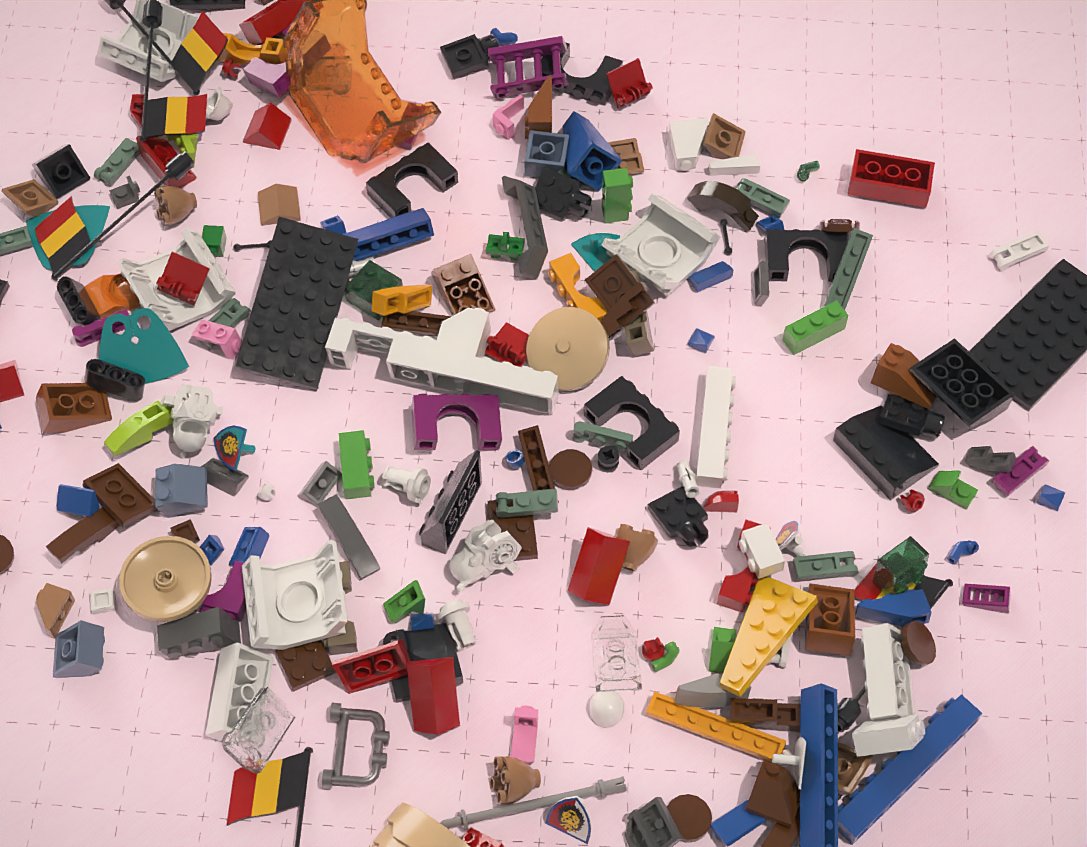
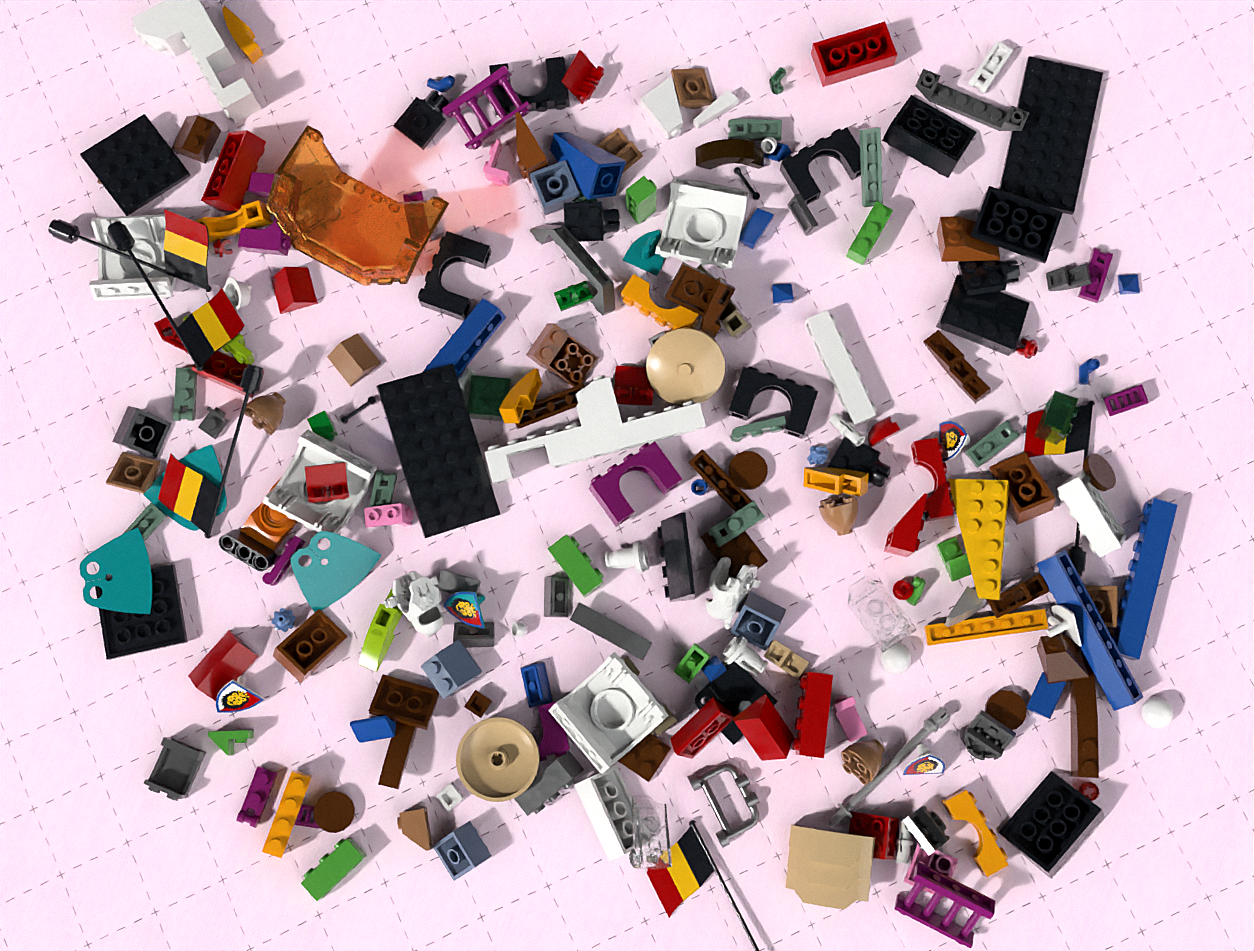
camera: 25 degrees left, 20 degrees up
(67, 374) = (283, 620): none -> medium blue plant
(114, 380) = (337, 597): black beam -> none
(212, 548) = (507, 703): blue slope -> none
(235, 416) = (454, 582): none -> flat silver slope
(334, 224) = (413, 353): blue slope -> none
(489, 708) = (814, 714): none -> red brick
(493, 600) = (758, 620): none -> sand blue slope
(498, 652) = (786, 660): none -> tan slope
(598, 566) = (824, 548): red slope -> none
(609, 464) = (773, 449): black wheel -> none
(645, 488) = (817, 455): none -> medium blue plant
(648, 516) = (836, 480): none -> light orange slope
(690, 590) = (903, 536): none -> red slope
(762, 551) = (945, 465): white brick -> none
(765, 213) = (766, 145): none -> white hinge
(831, 481) = (956, 366): none -> reddish brown slope
(839, 225) = (837, 124): reddish brown tile -> none
(888, 735) = (1124, 567): white brick -> none
(897, 608) = (1074, 451): blue slope -> none
(923, 277) = (929, 136): none -> black slope
(952, 488) = (1051, 318): bright green slope -> none
(975, 270) = (968, 105): none -> dark grey slope

